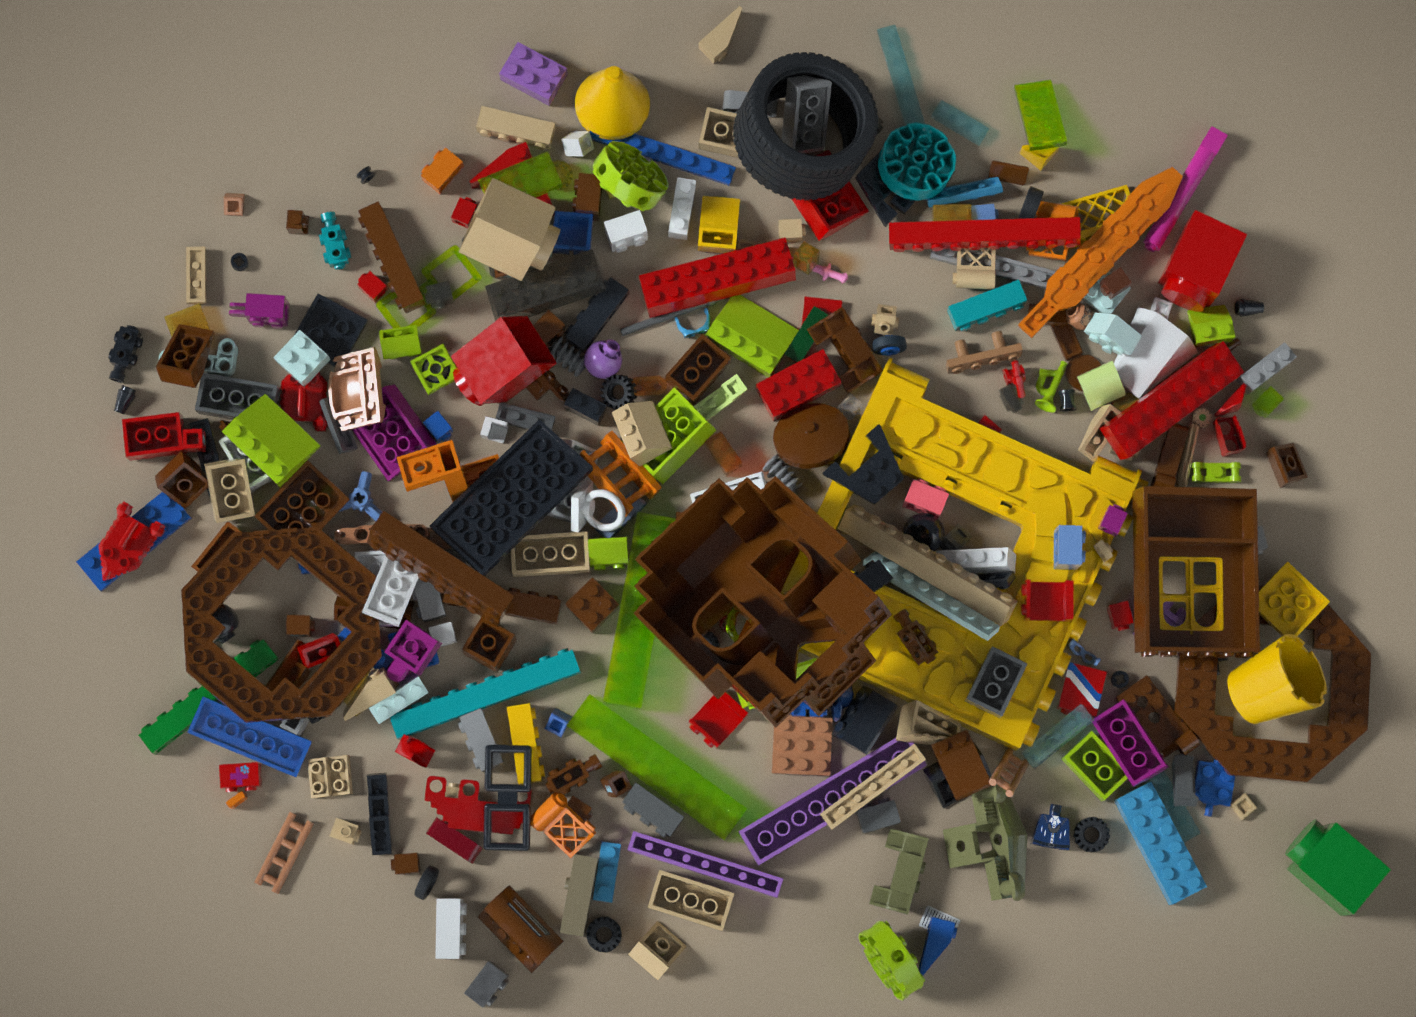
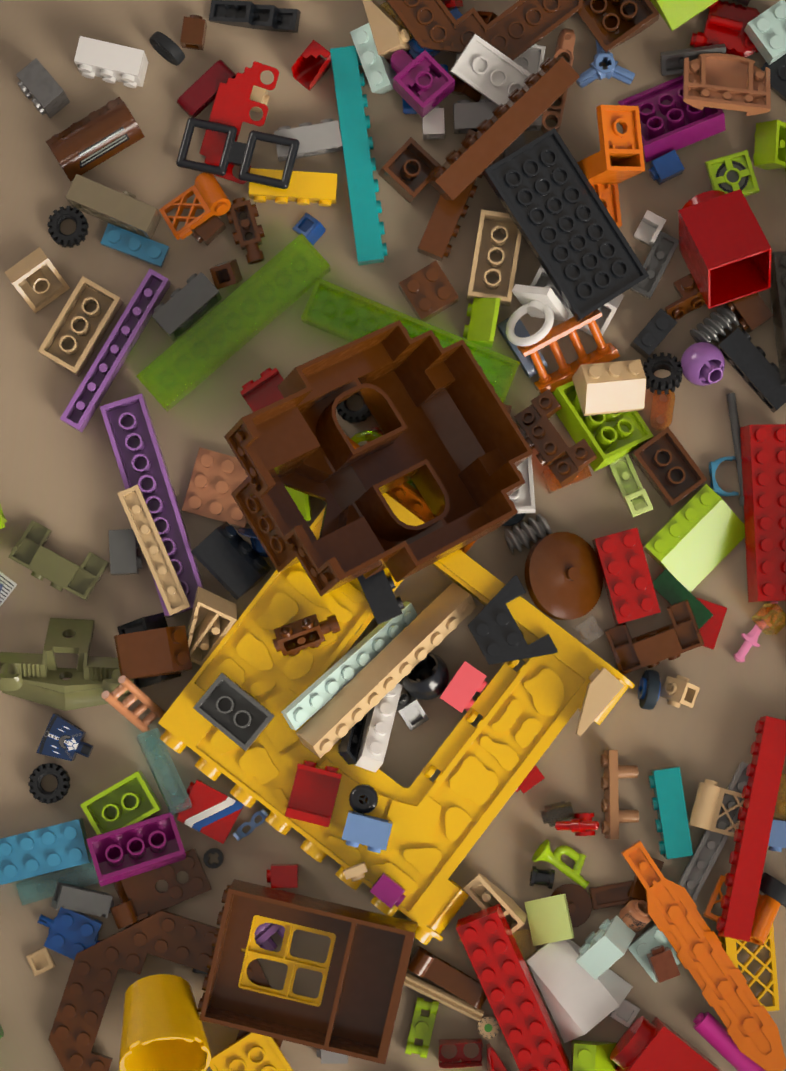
camera: 105 degrees right, 5 degrees up
(707, 467) = (553, 451): none -> reddish brown bracket
(910, 383) = (597, 697): none -> tan slope
(1038, 563) = (369, 792): none -> black head

